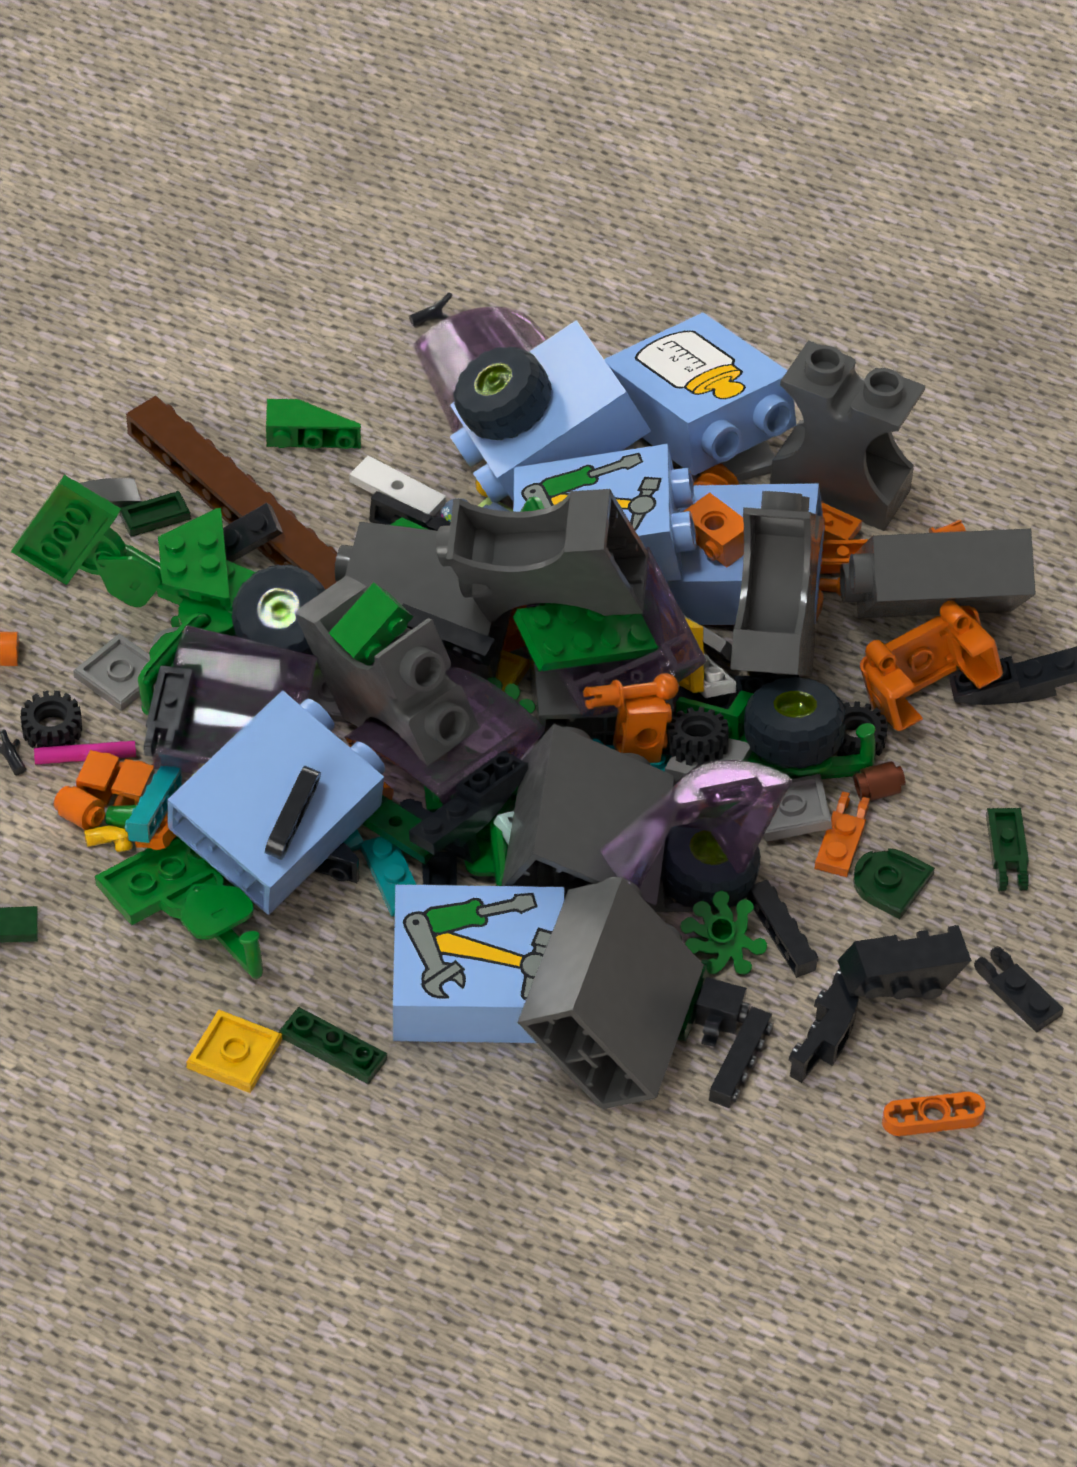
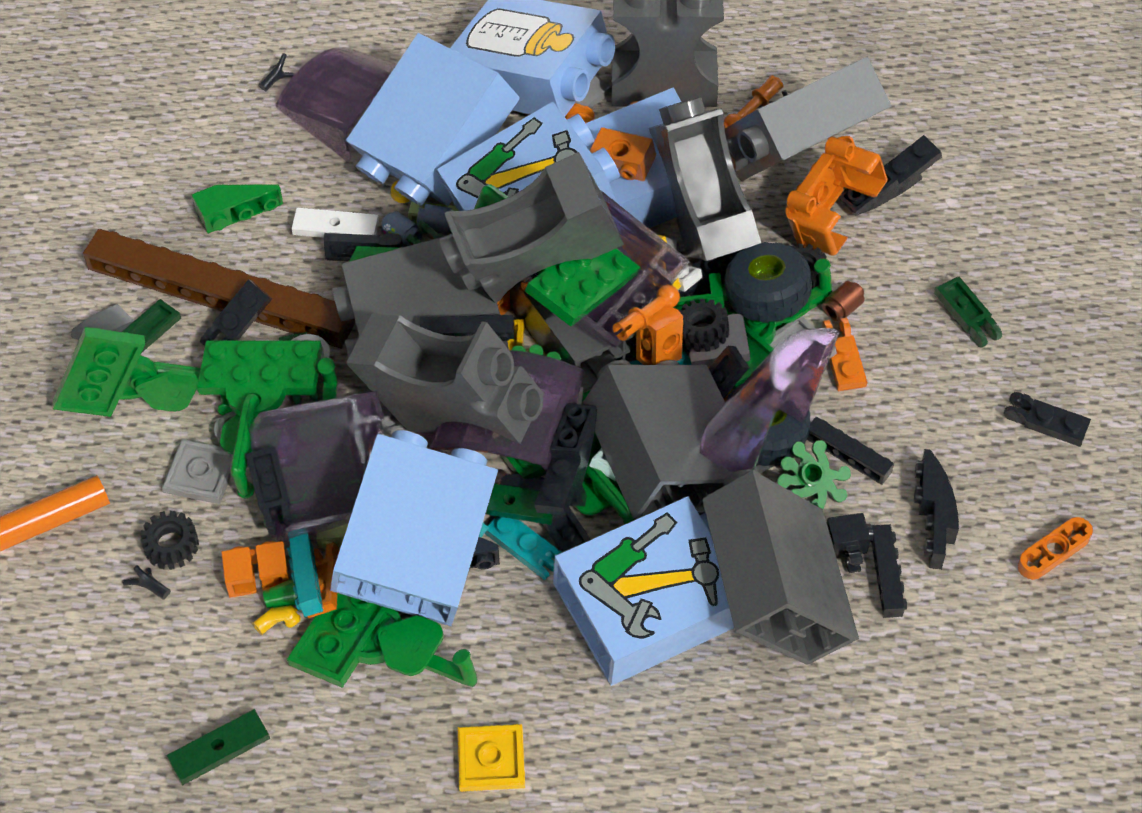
camera: 25 degrees left, 5 degrees up
(76, 753) = (211, 554): dark pink piece -> none
(79, 807) = (238, 604): orange brick -> none
(195, 559) = (219, 351): green wing -> none
(267, 606) = (316, 366): black wheel -> none
(292, 812) = (446, 535): black beam -> none
(333, 1045) = (586, 713): dark green tile -> none
(371, 624) = (423, 347): green brick -> none
(502, 393) = (394, 113): black wheel -> none
(890, 880) = (900, 375): dark green tile -> none
(904, 967) = (972, 440): black wedge -> none

